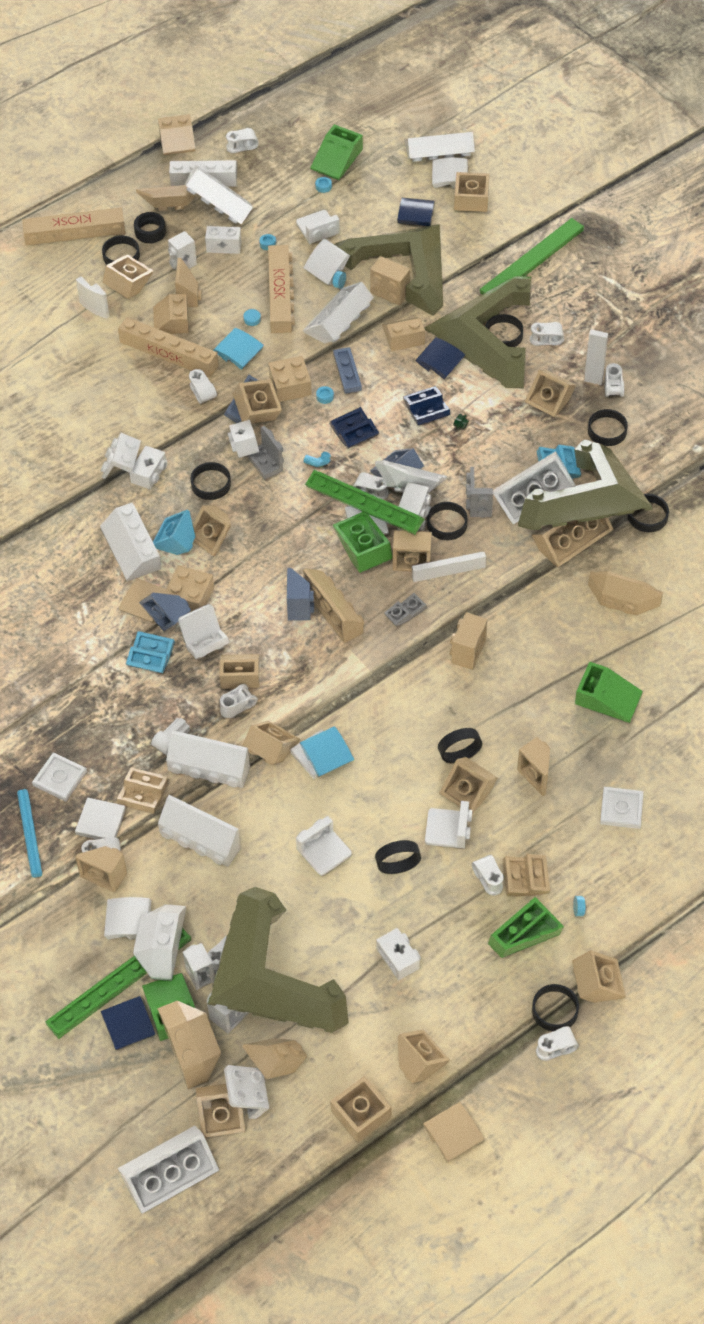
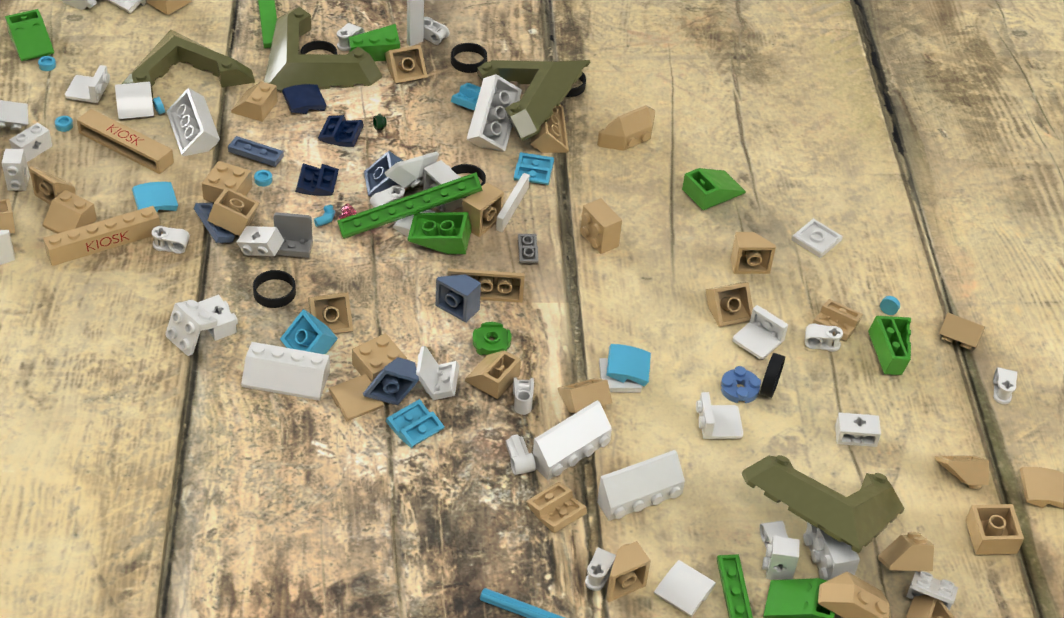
camera: 60 degrees left, 10 degrees down
(59, 776) = (489, 558): white tile -> none
(100, 819) = (562, 553): white tile -> none
(159, 940) = (733, 571): white wedge -> none
(252, 317) = (131, 174): medium azure tile -> none
(279, 656) = (481, 338): none -> bright green plate
(333, 469) = (347, 211): none -> clear pink tile
(374, 834) = (744, 377): none -> medium blue plate
(389, 280) = (202, 75): tan brick -> none
(416, 211) = (144, 32): dark blue slope -> none
(458, 735) = (696, 283): black tyre -> none
(480, 499) = (465, 149): light grey bracket -> none
(508, 557) = (536, 166): none -> medium azure slope
(553, 356) = (376, 42): none -> bright green wedge
(555, 988) = (967, 382): black tyre -> none

